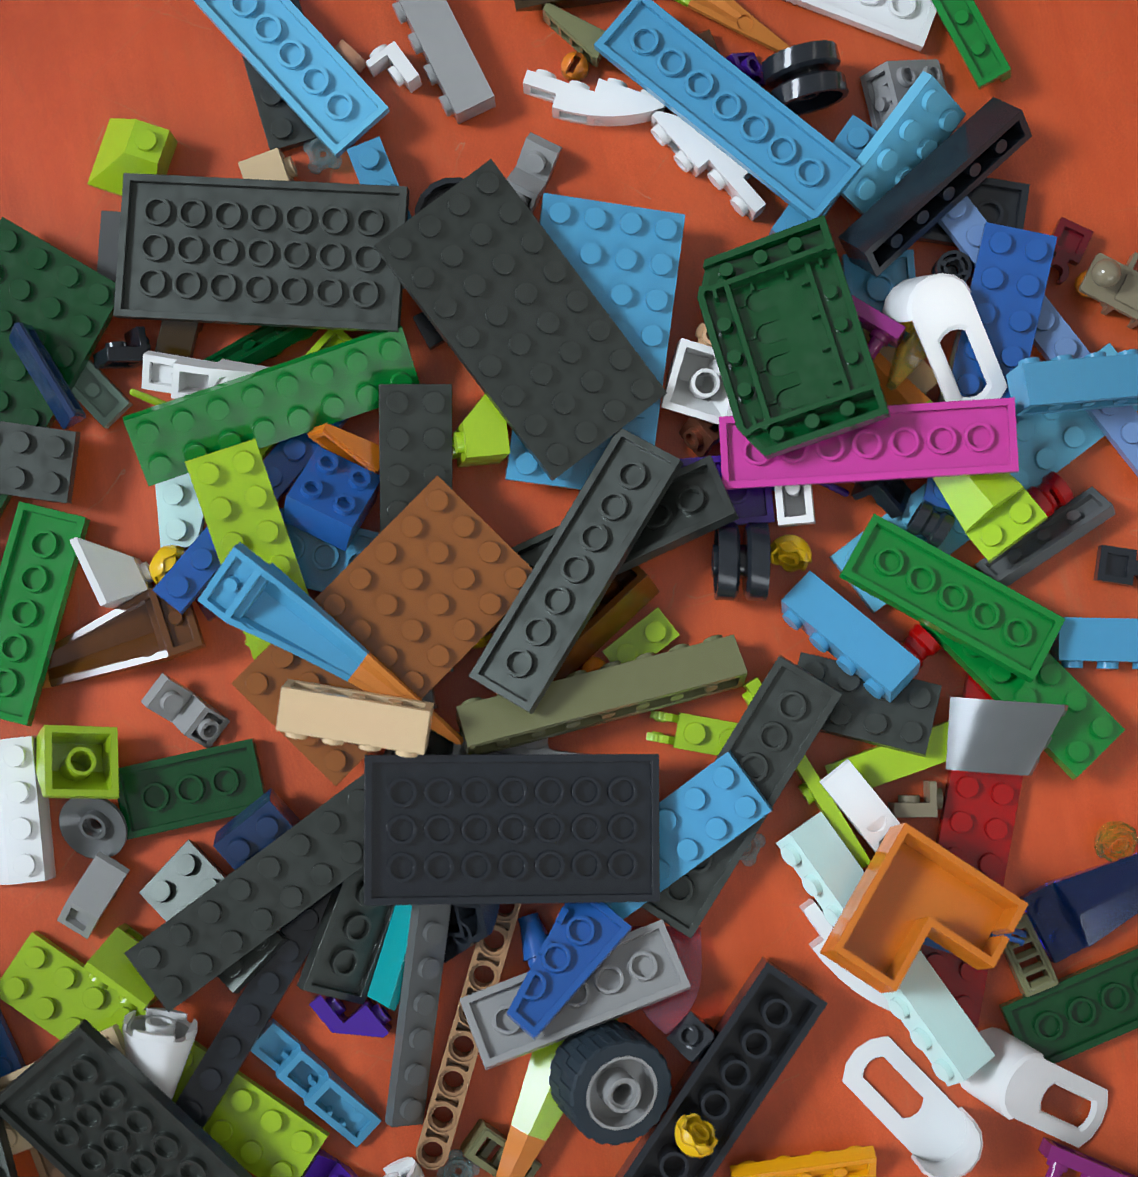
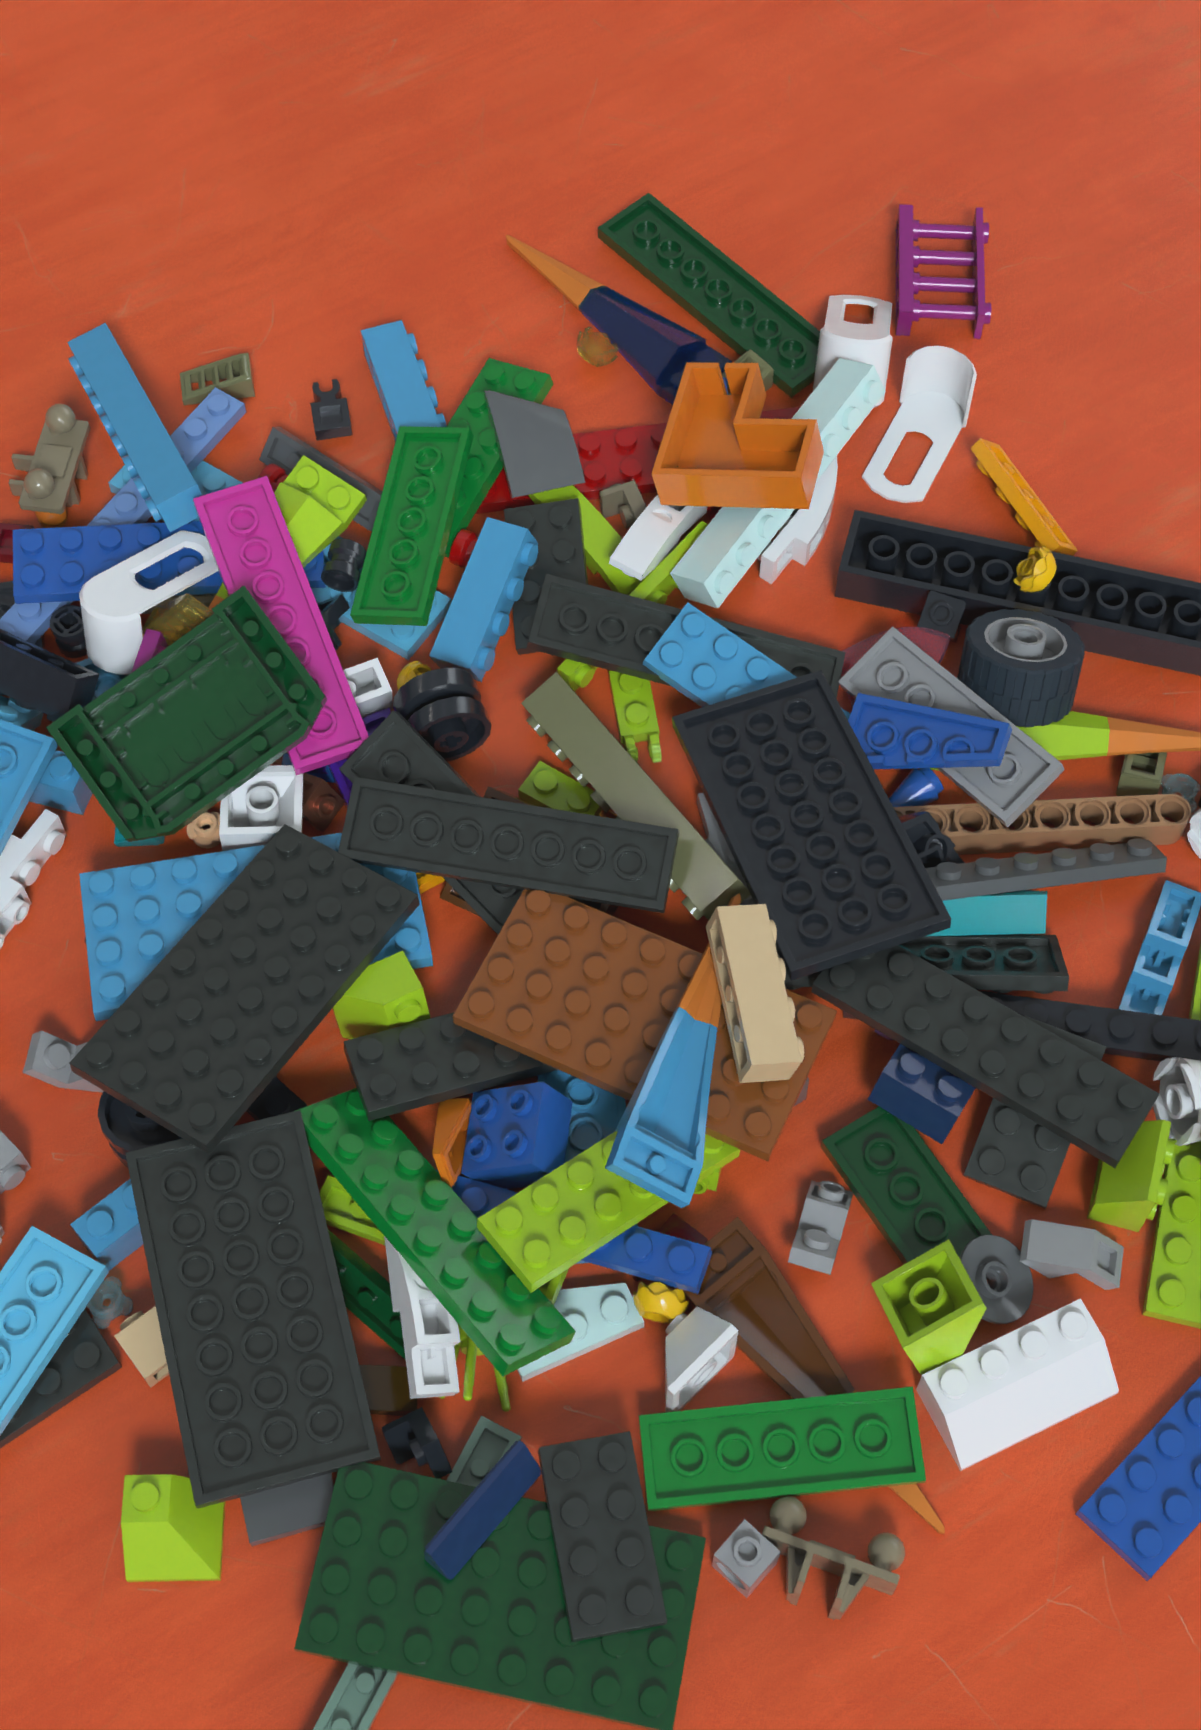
camera: 105 degrees left, 25 degrees down
(365, 1021) = (1076, 934): dark purple slope -> none

